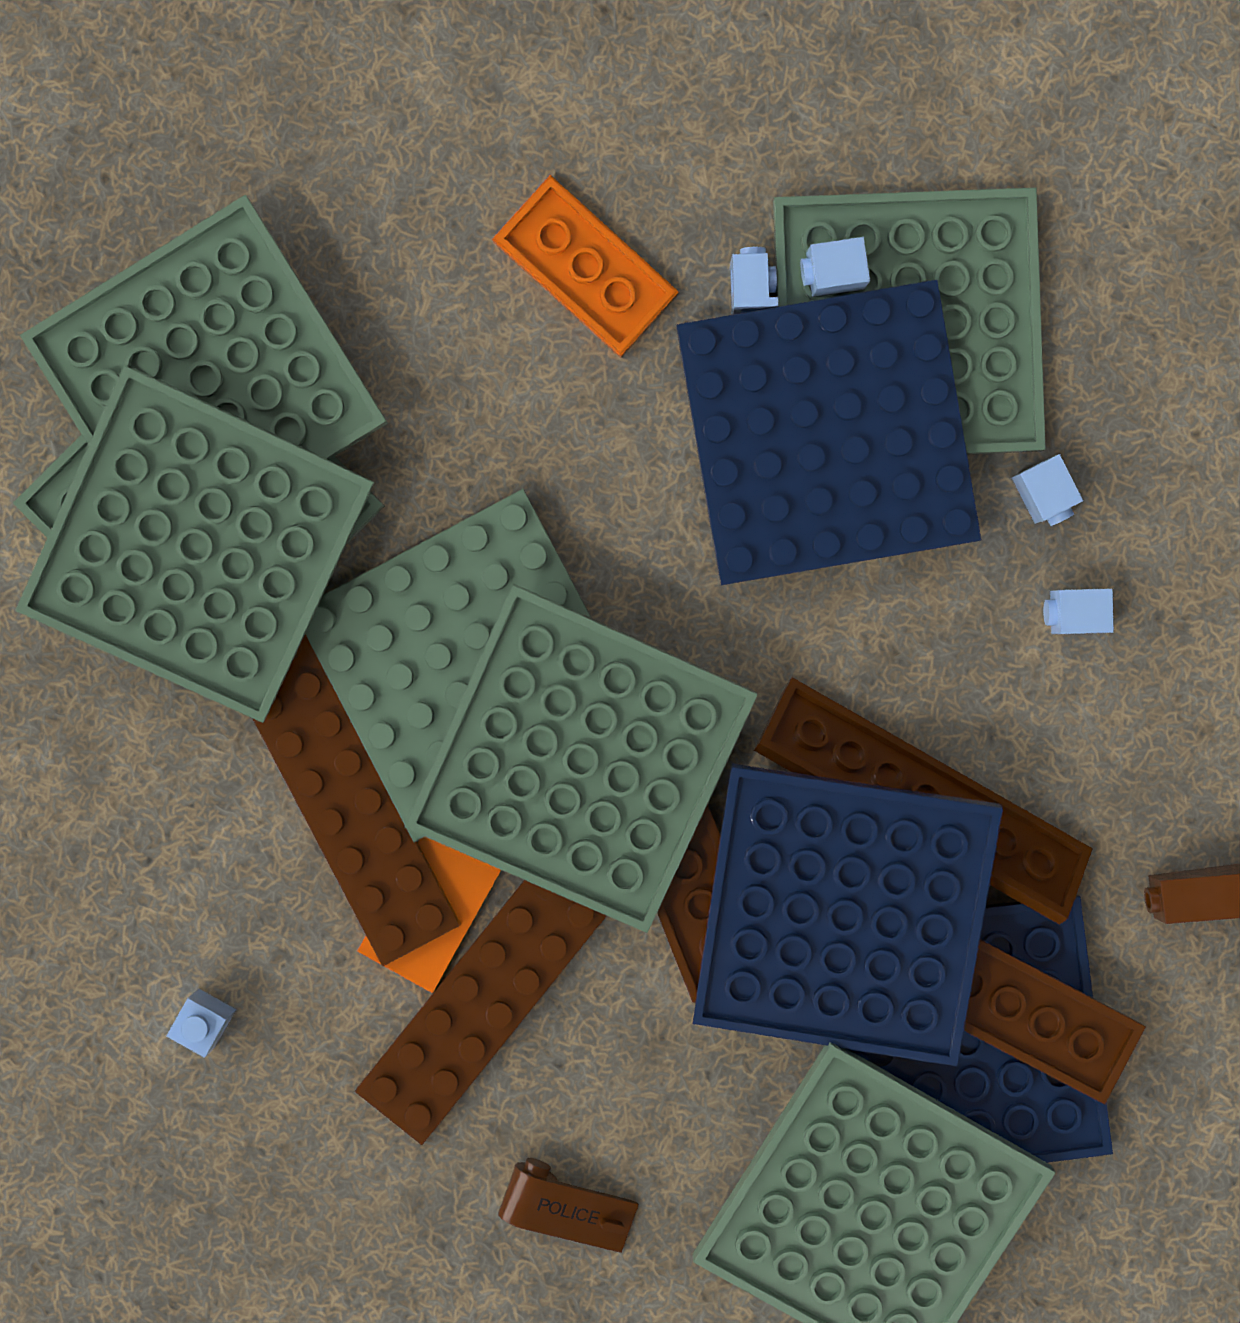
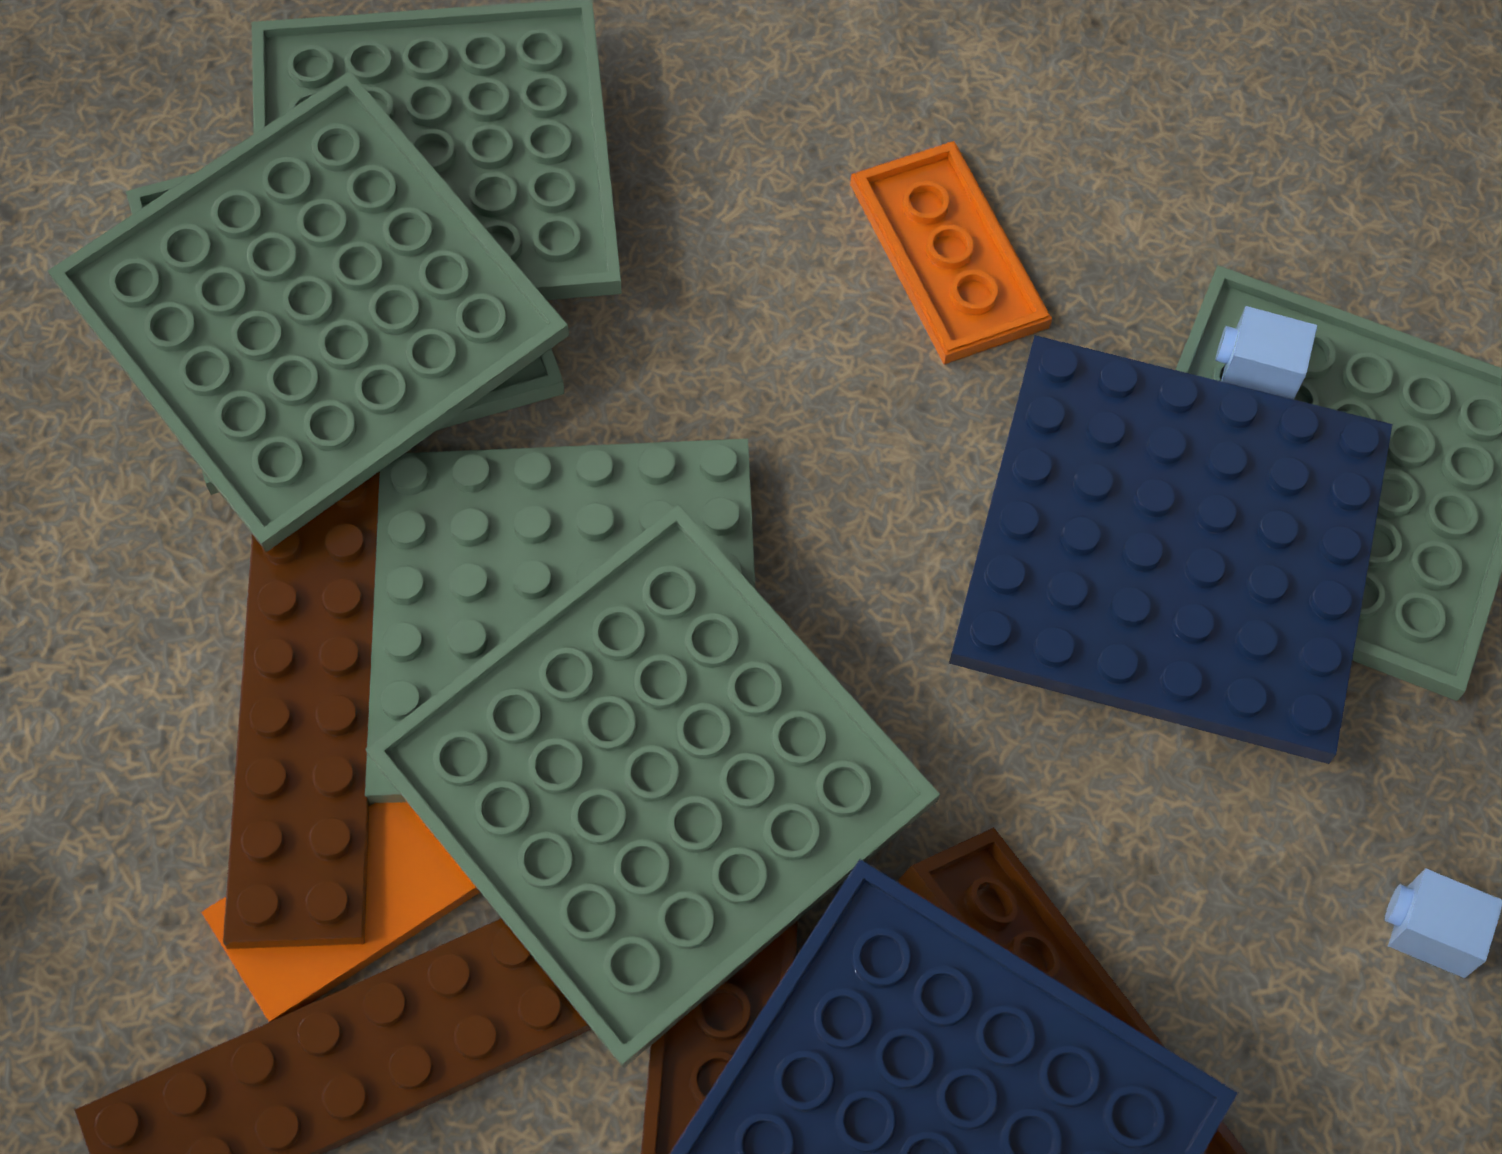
camera: 20 degrees right, 25 degrees down
(752, 281) = (1152, 332): light blue brick -> none
(1048, 491) = (1450, 744): light blue brick -> none

